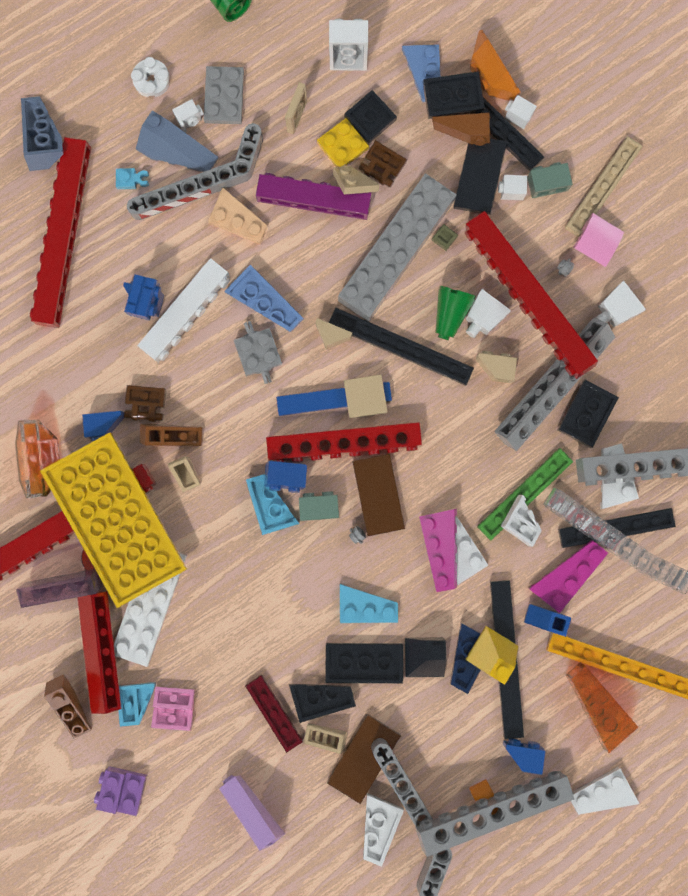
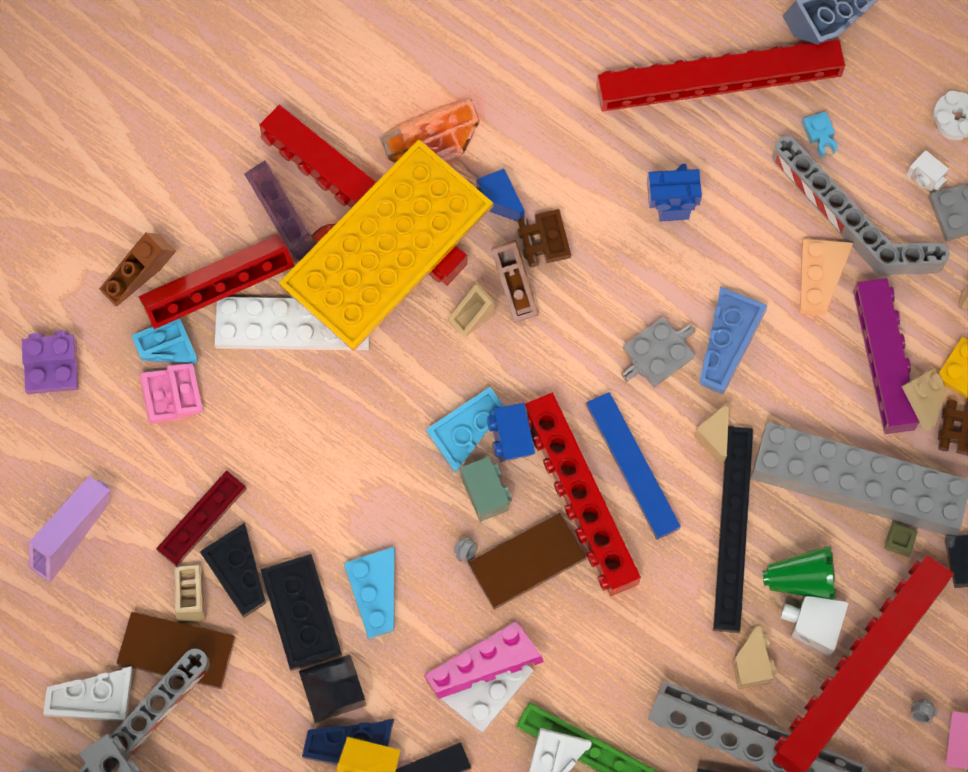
camera: 70 degrees right, 15 degrees down
(168, 143) = (882, 161): sand blue wedge -> none
(184, 311) = (677, 247): white brick -> none
(365, 396) = (650, 501): tan tile -> none

